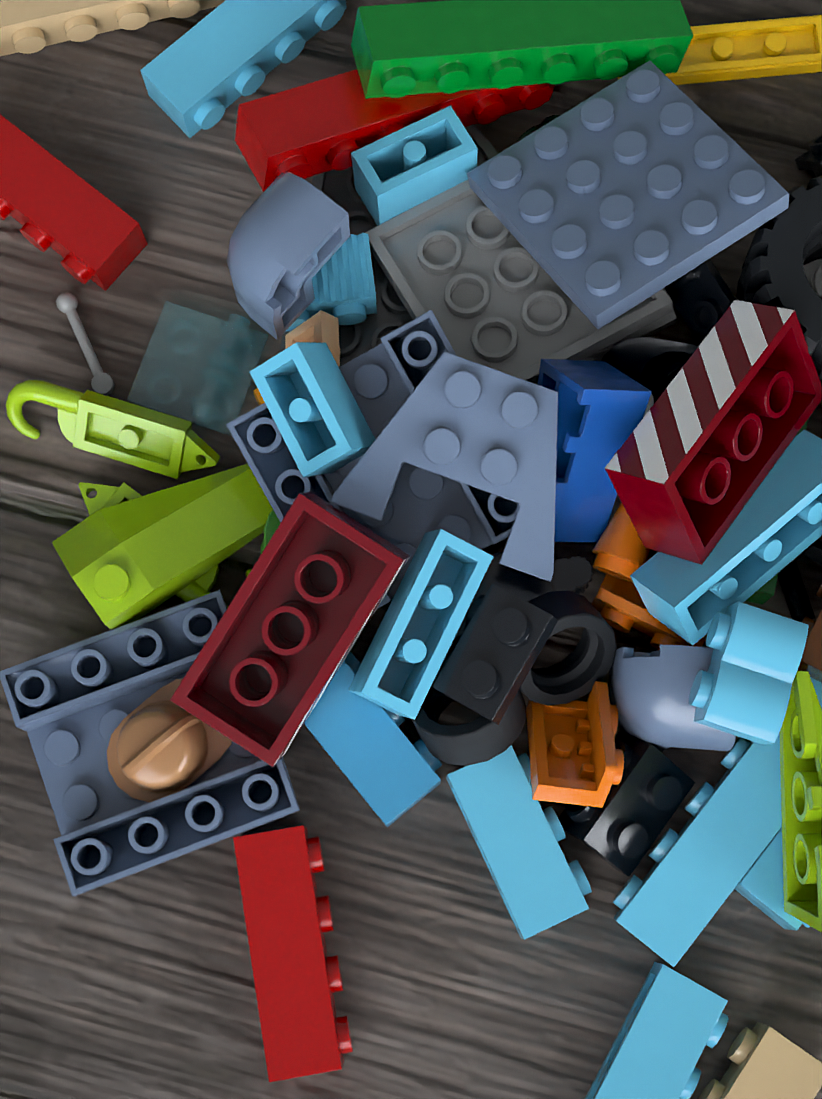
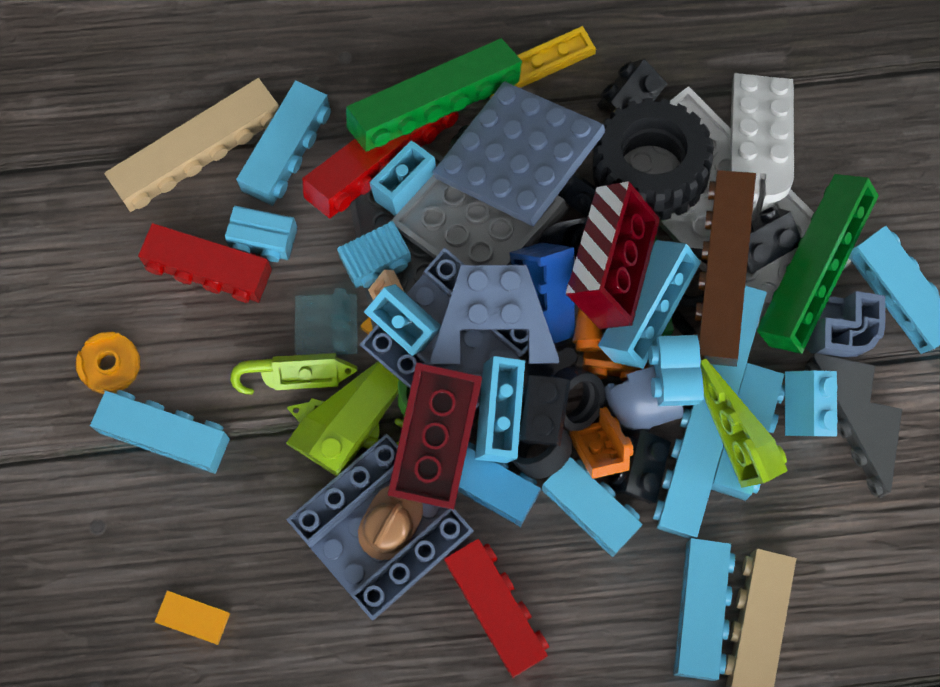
camera: 20 degrees left, 5 degrees down
(101, 382) = (276, 350): light grey hinge -> none
(149, 177) = (261, 233): none -> medium azure brick
(281, 248) = (355, 244): sand blue brick -> none

